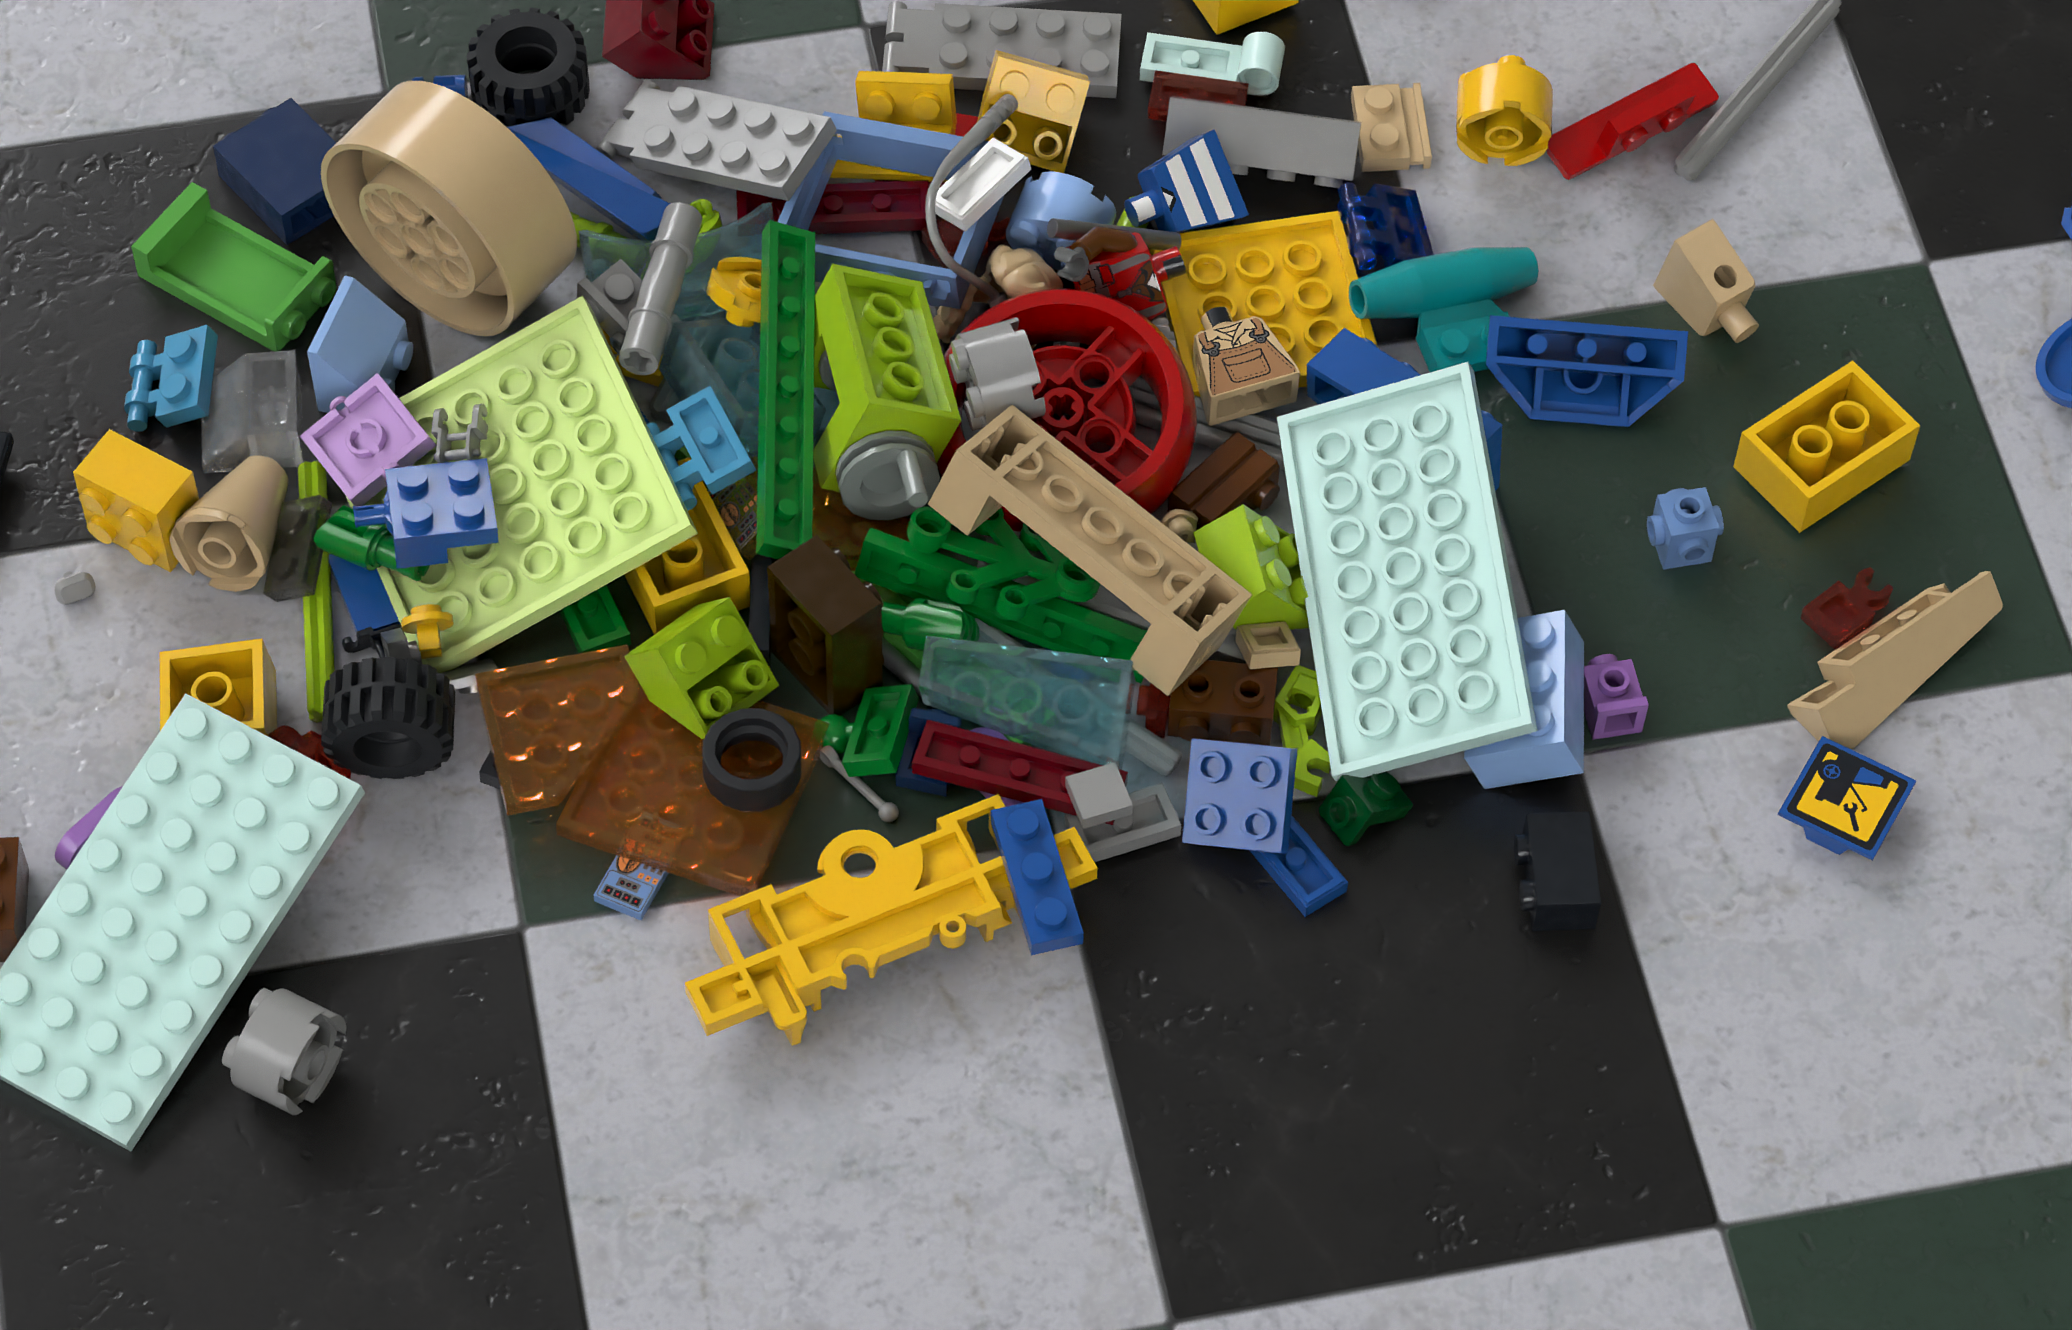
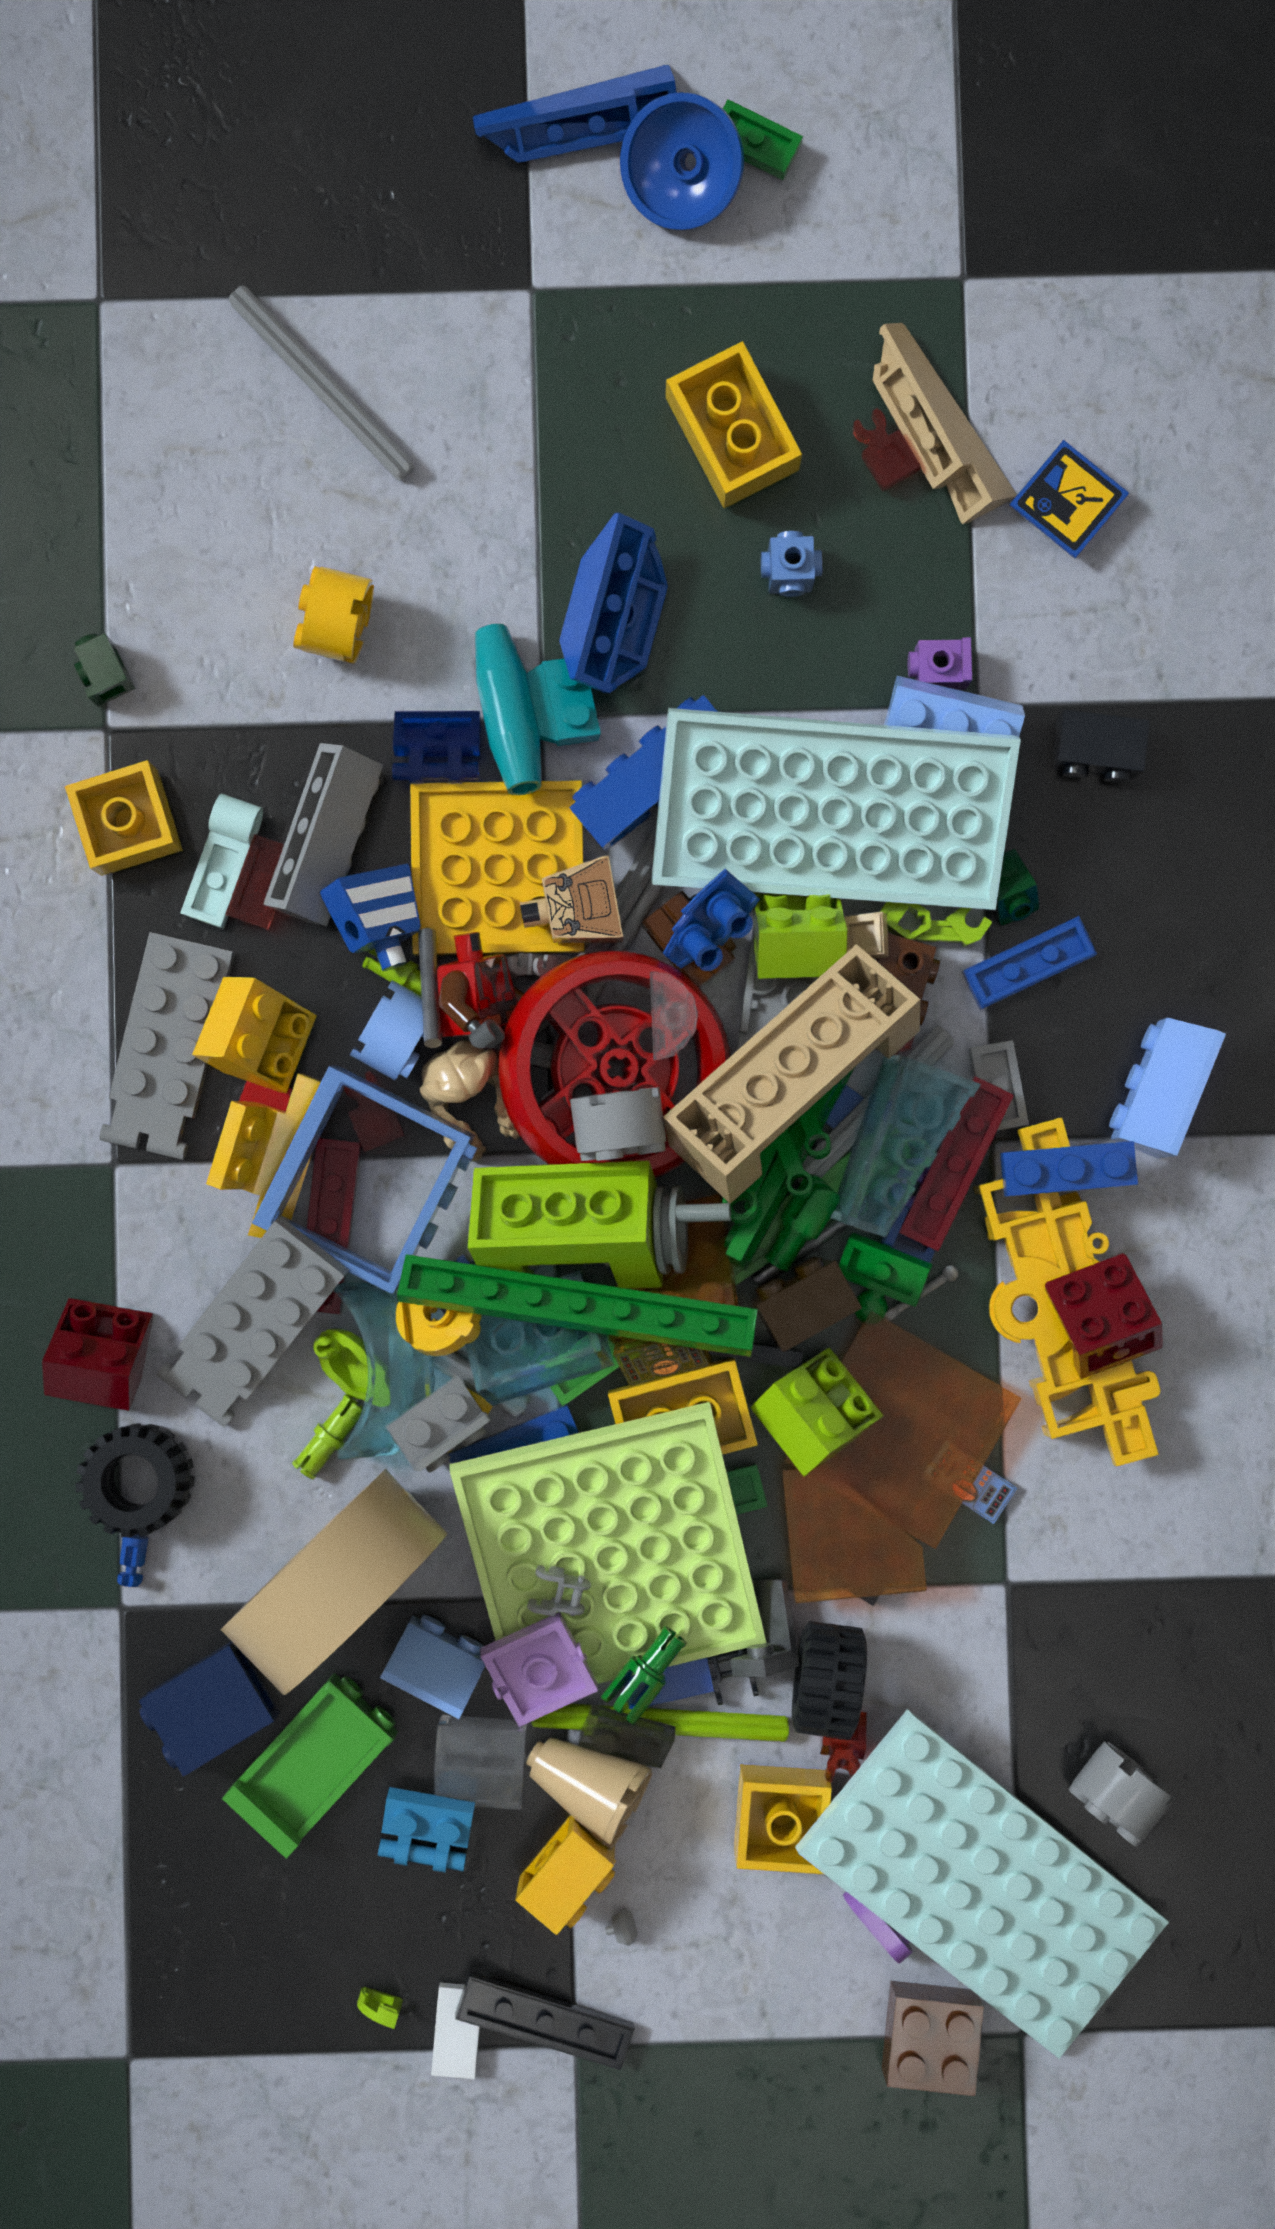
camera: 80 degrees left, 30 degrees up
(426, 623) = (737, 1637): yellow plate -> none
(434, 510) = (639, 1621): plate -> none
(593, 177) = (271, 1436): blue wedge -> none
(660, 289) = (438, 1398): light grey piece -> none
(711, 442) = (615, 1378): dark azure plate -> none
(751, 726) = (942, 1373): black tyre -> none
(859, 925) = (1105, 1315): none -> dark red bracket
(978, 133) = (317, 1091): light grey piece -> none
(980, 184) = (374, 1099): white tile -> none
(1099, 795) = (1001, 1104): light grey tile -> none
(1130, 430) = (672, 1014): none -> clear plate
(1156, 993) = (1166, 1086): none -> light blue slope
(1181, 523) = (733, 988): tan arm -> none
(1239, 795) = (1001, 987): plate -> none
(1251, 477) = (710, 920): none -> blue connector
(1391, 127) = (312, 715): tan plate -> none
(1631, 121) = (349, 500): red bracket -> none
(1708, 283) = (548, 482): tan torso -> none

